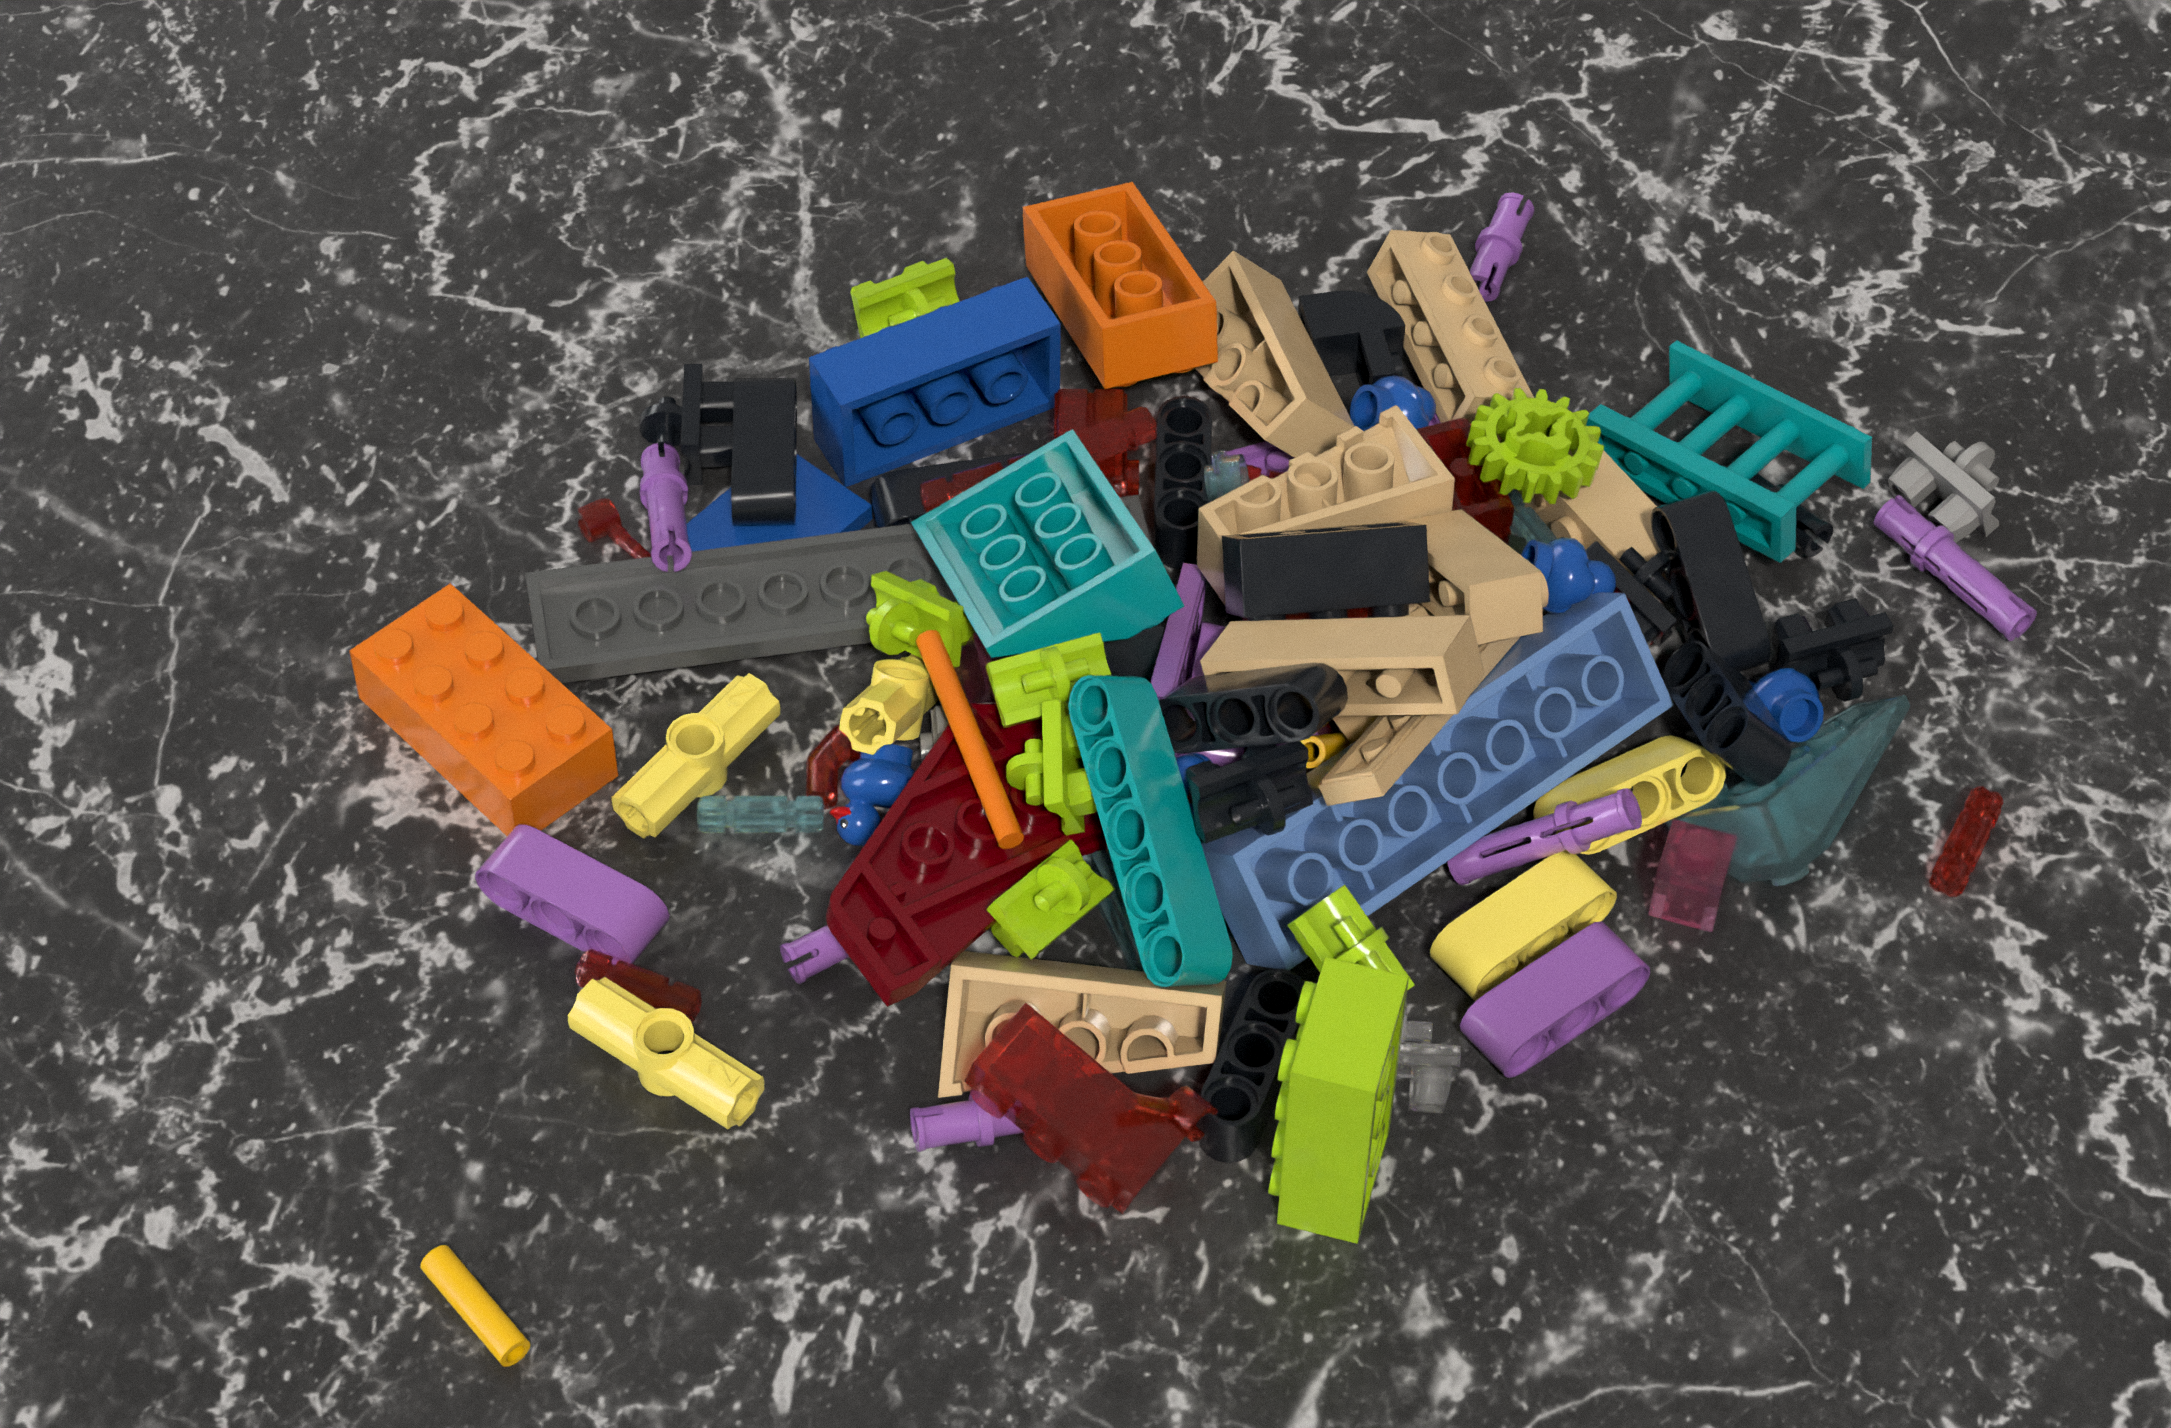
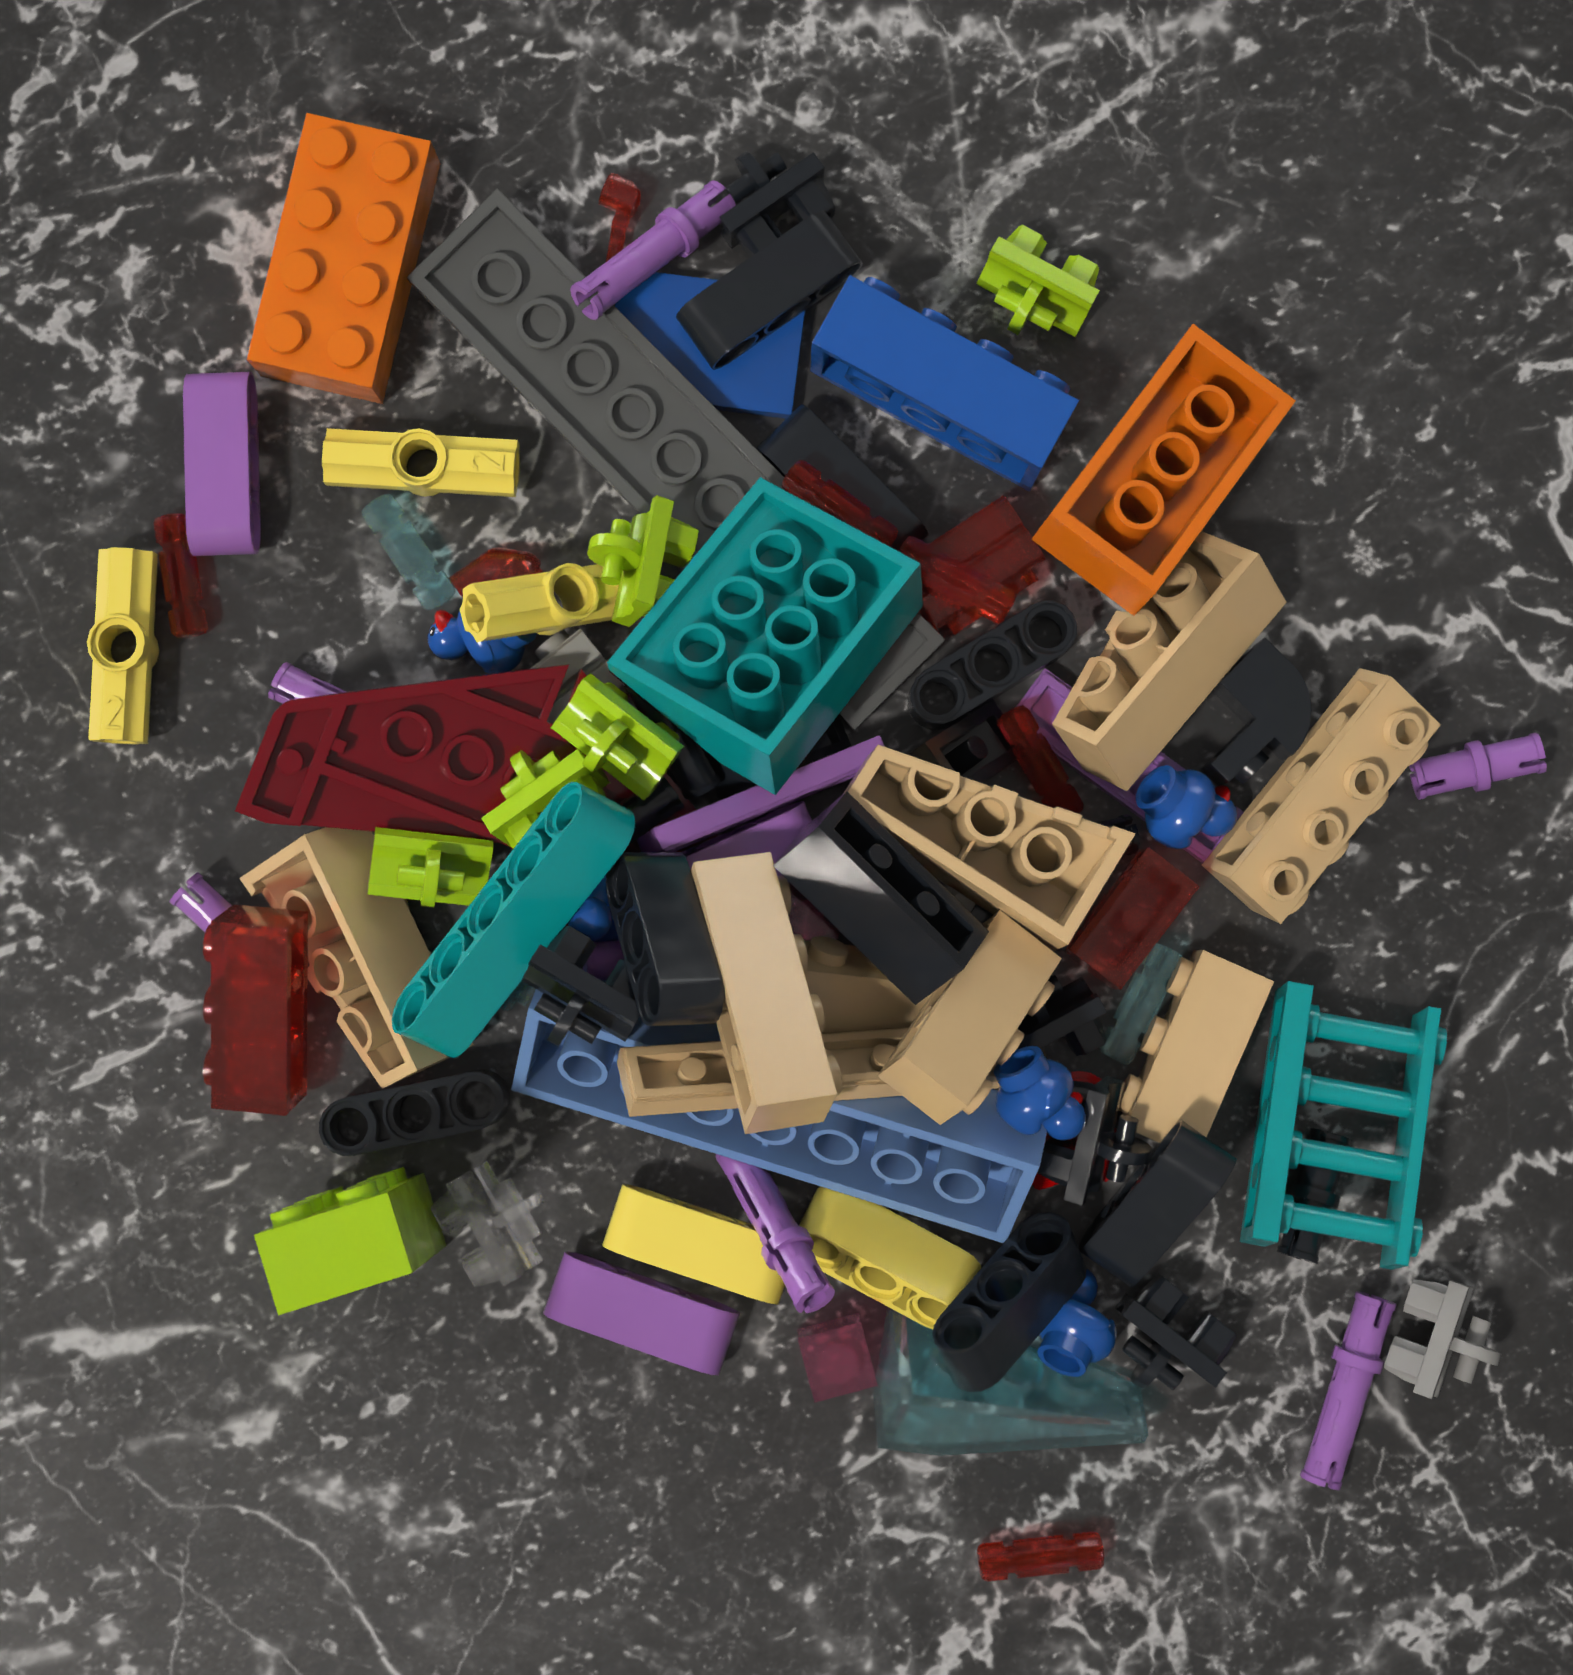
camera: 55 degrees right, 35 degrees up
(969, 740) = (533, 697): orange bar -> none
(1180, 1109) = (306, 1103): clear red hand -> none
(1225, 474) = (987, 719): clear light blue plate -> none
(1344, 932) = (533, 1141): lime hips -> none
(1534, 445) = (1208, 948): lime gear -> none

